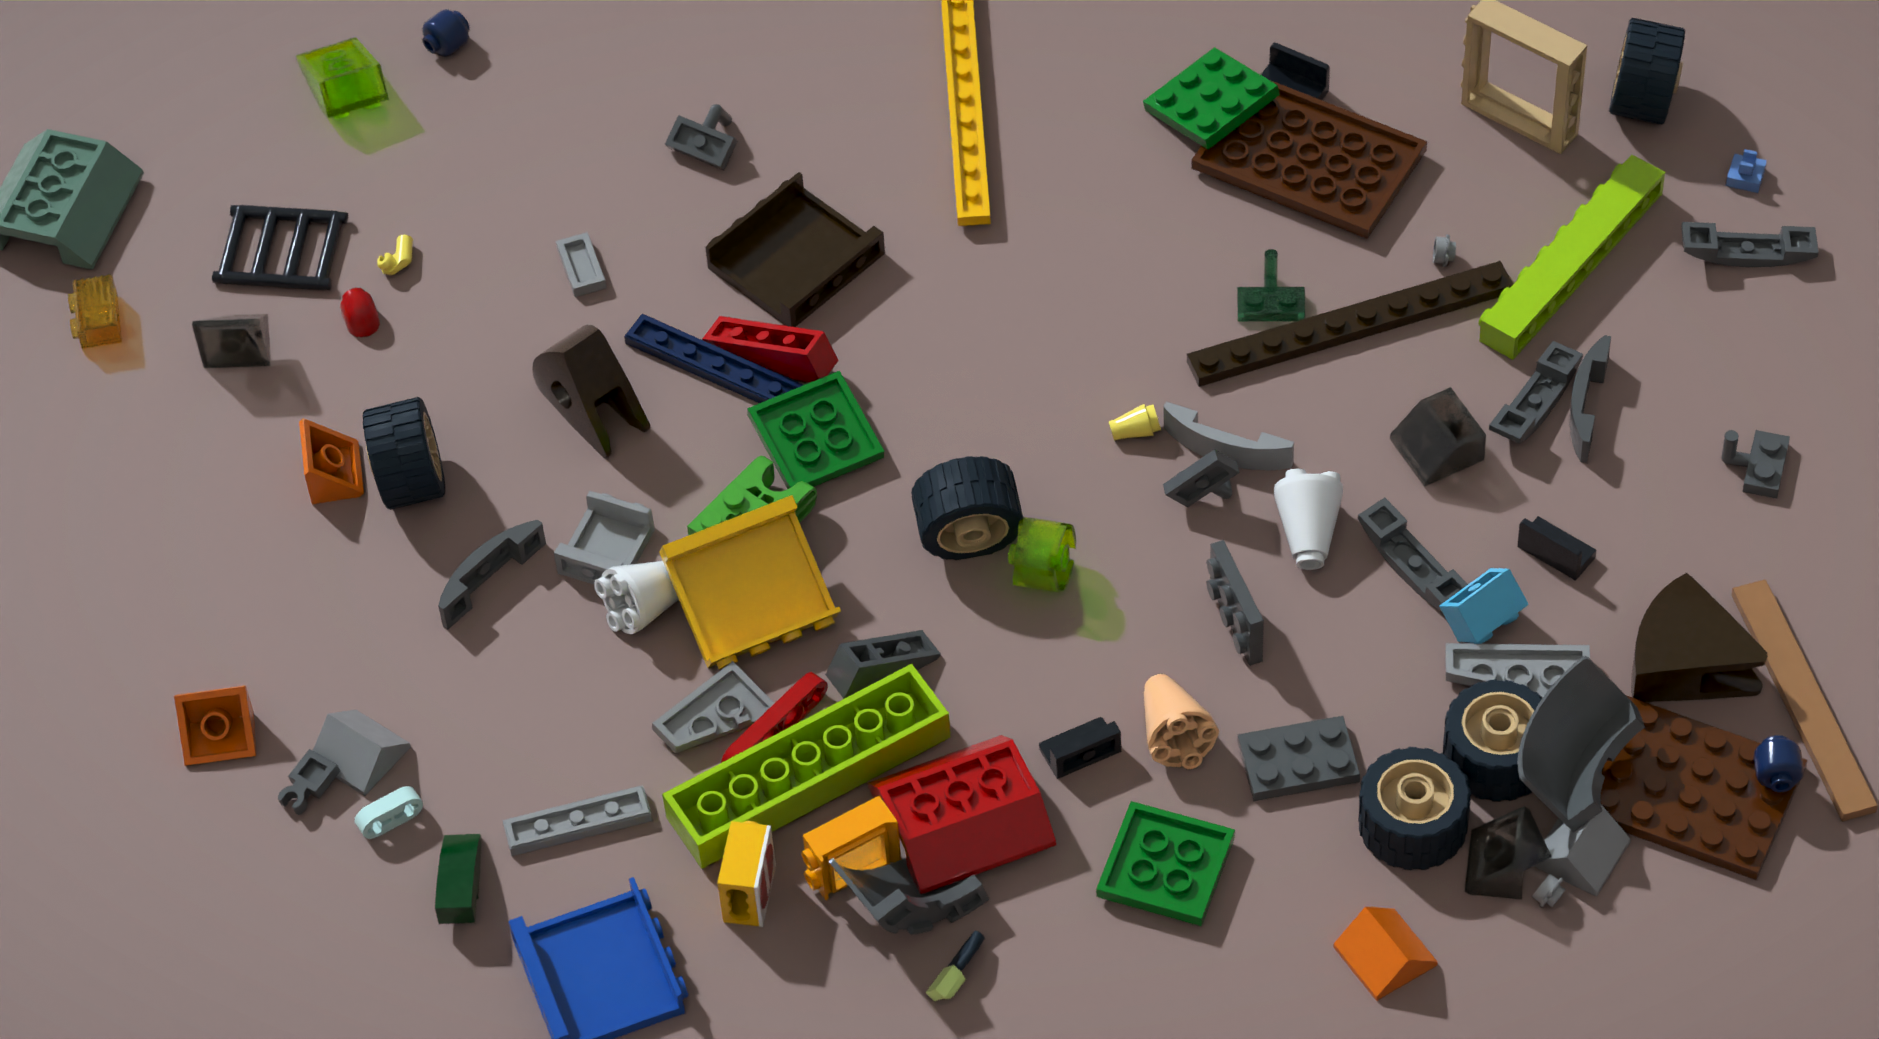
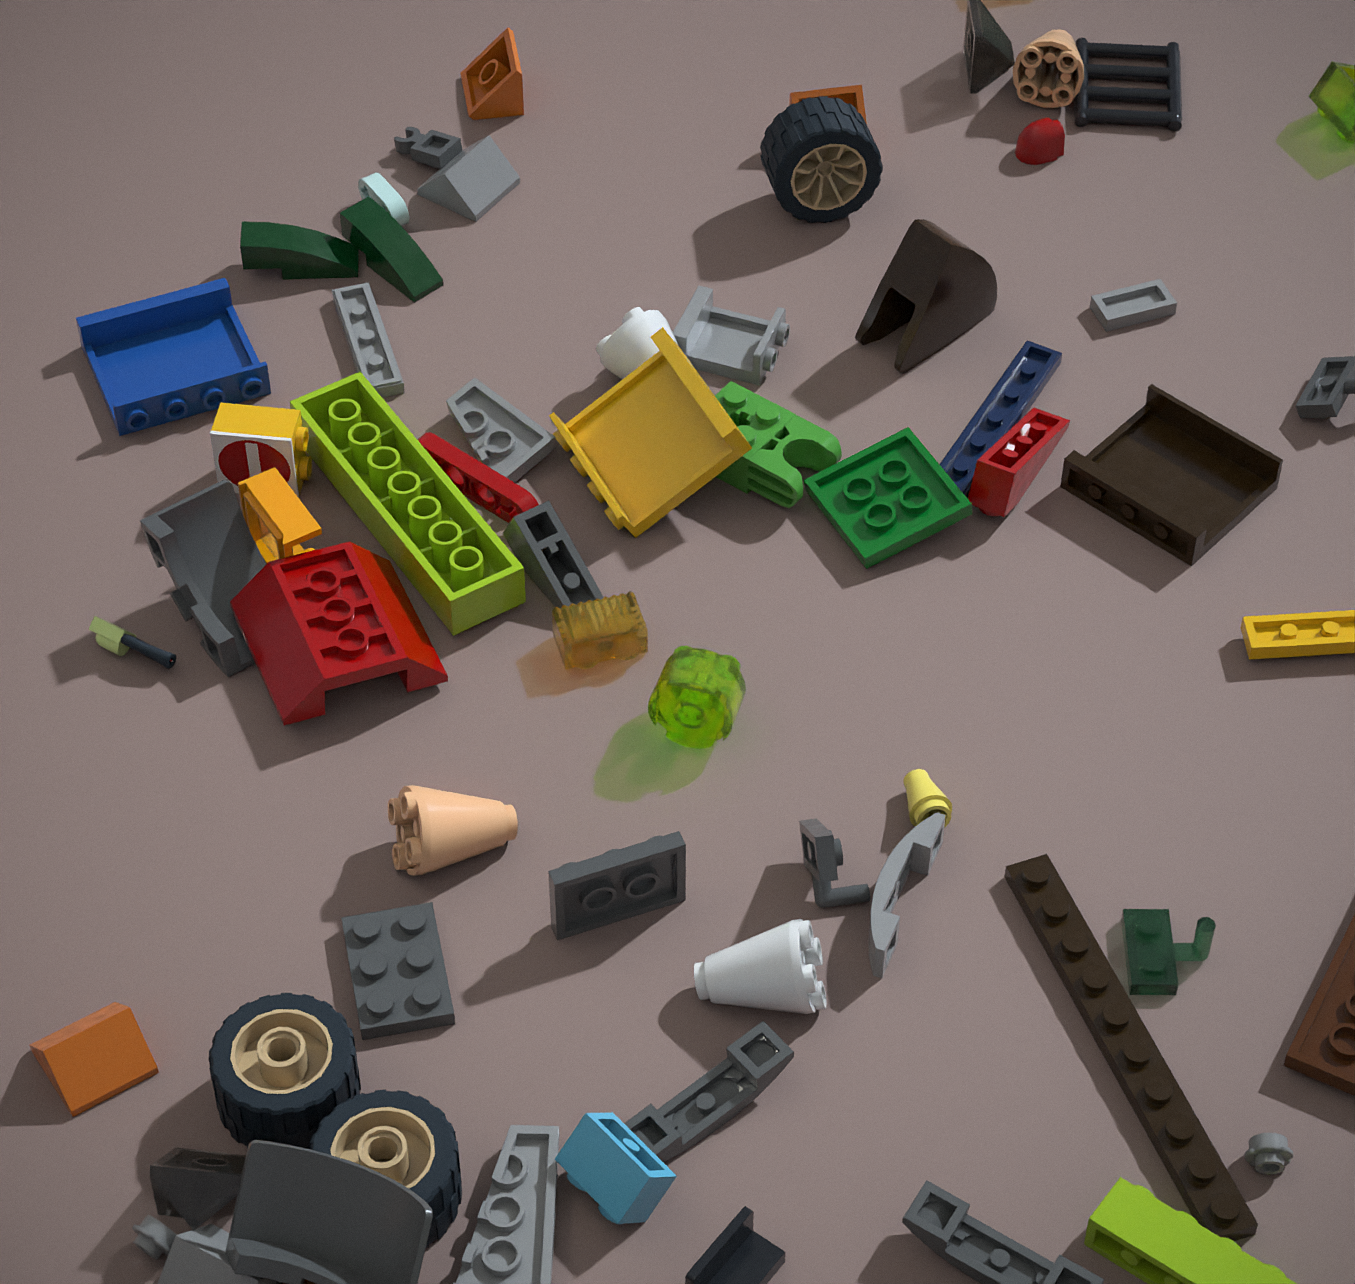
camera: 85 degrees right, 5 degrees down
(265, 288) = (1049, 70): none -> light nougat cone
(394, 263) = (1121, 168): light yellow arm -> none
(463, 802) = (389, 249): none -> dark green slope
(516, 543) = (659, 229): dark grey slope -> none
(958, 629) = (599, 631): none -> clear yellow brick
(967, 508) = (753, 610): black wheel -> none
(1081, 746) = (429, 750): black panel -> none
(1165, 863) = (247, 830): green plate -> none
(1439, 437) = (913, 1132): clear smoke slope -> none

